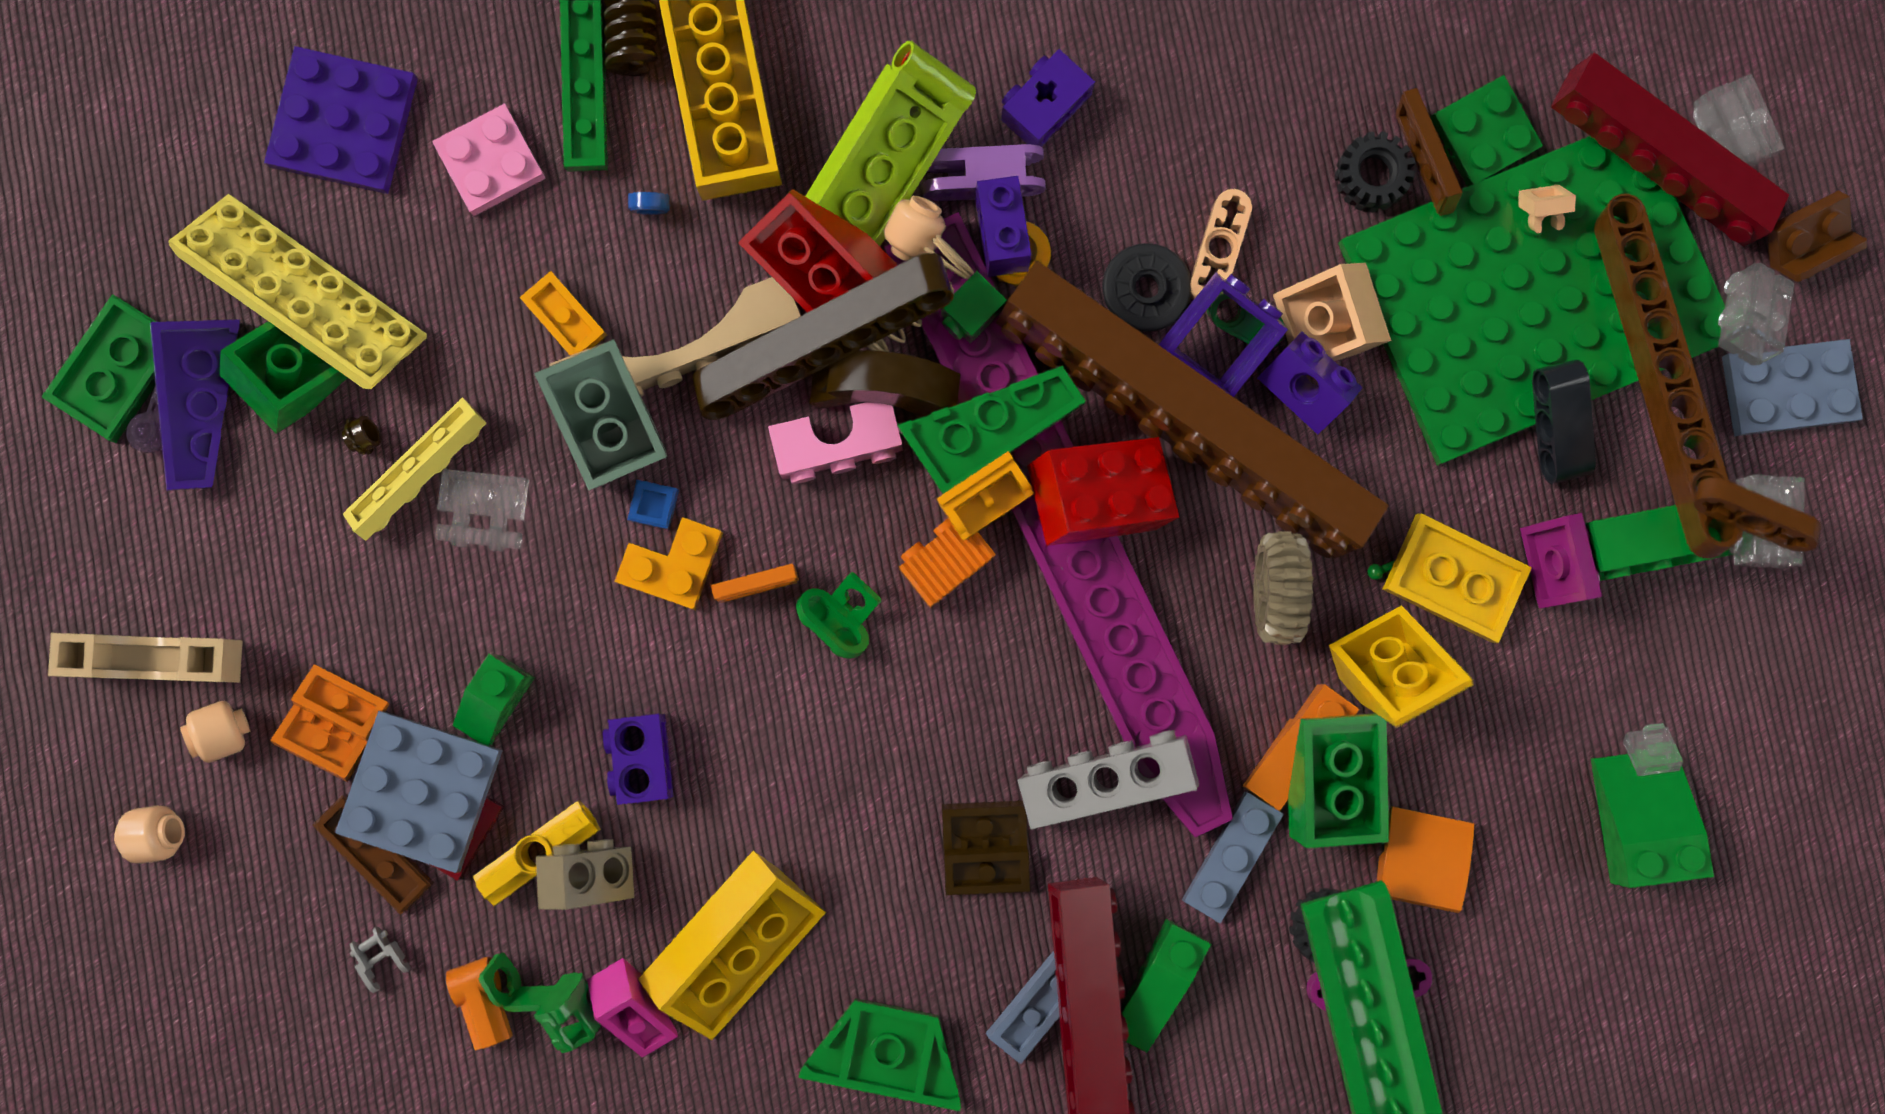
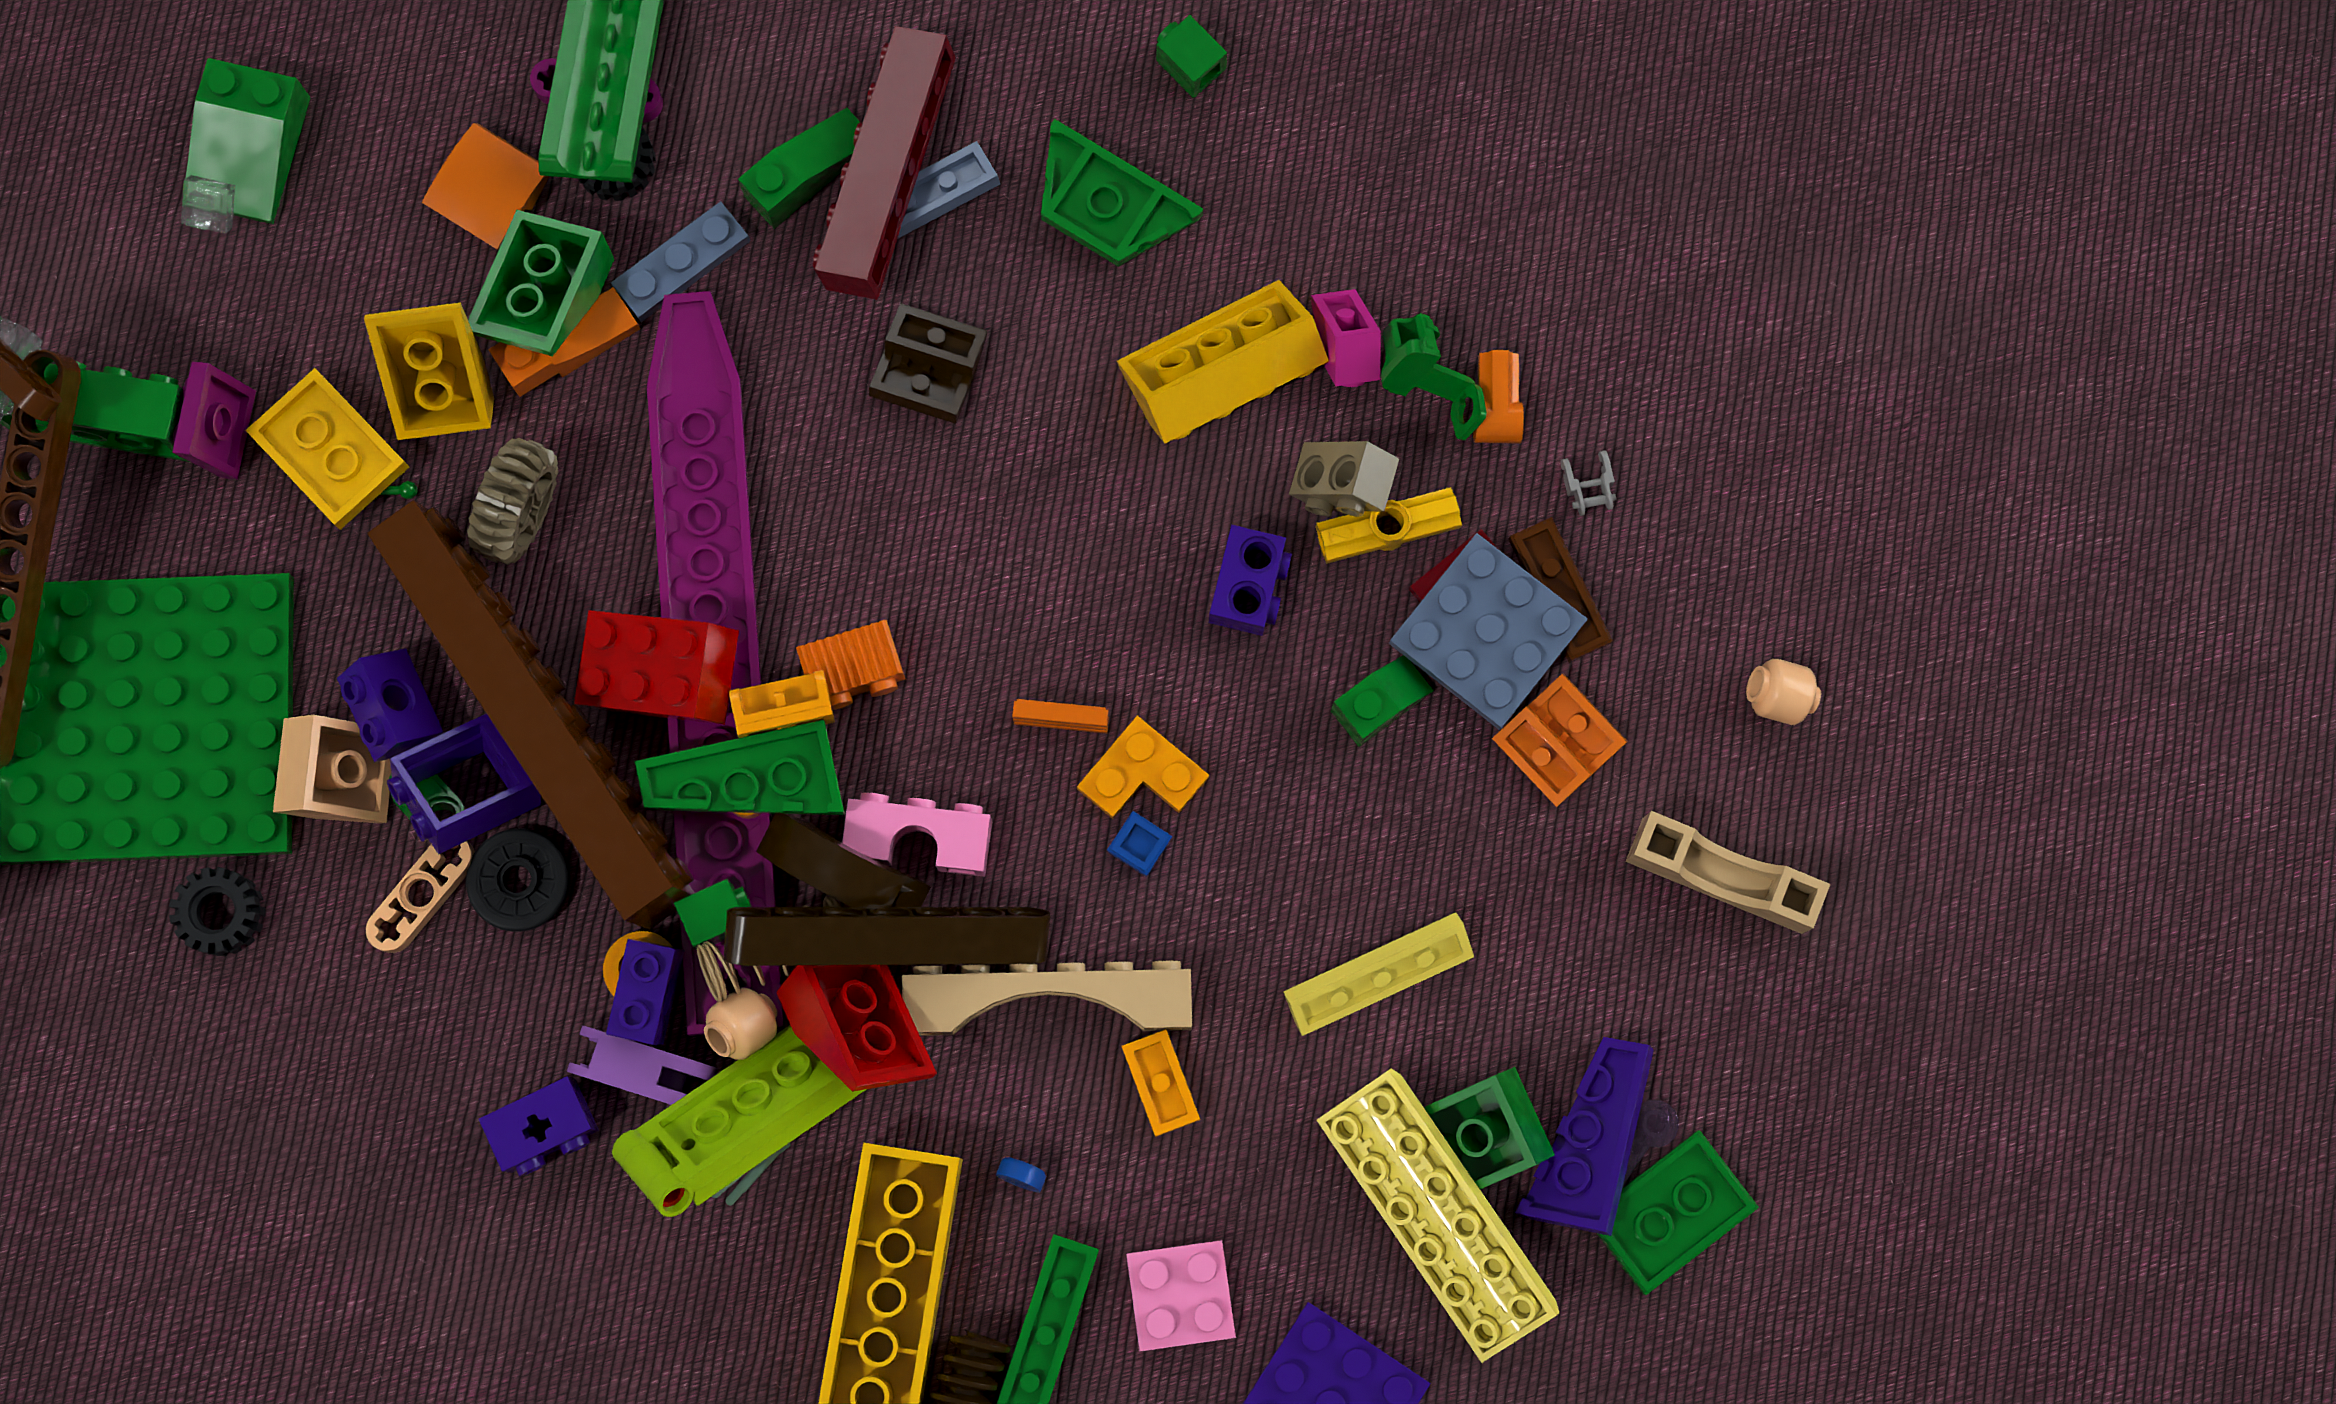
camera: 155 degrees left, 5 degrees down
(215, 731) = (1681, 772): light nougat head -> none
(361, 435) = (1425, 1033): dark brown plate -> none
(485, 496) = (1317, 918): clear plate -> none
(601, 414) = (1152, 941): sand green slope -> none
(835, 619) = (991, 647): green bracket -> none
(1047, 806) = (797, 364): light grey brick -> none
(1428, 152) = (151, 905): reddish brown tile -> none
(1485, 131) = (76, 912): green plate -> none
(1544, 202) = (52, 798): light nougat tile -> none
(1564, 421) = (142, 563): black beam -> none

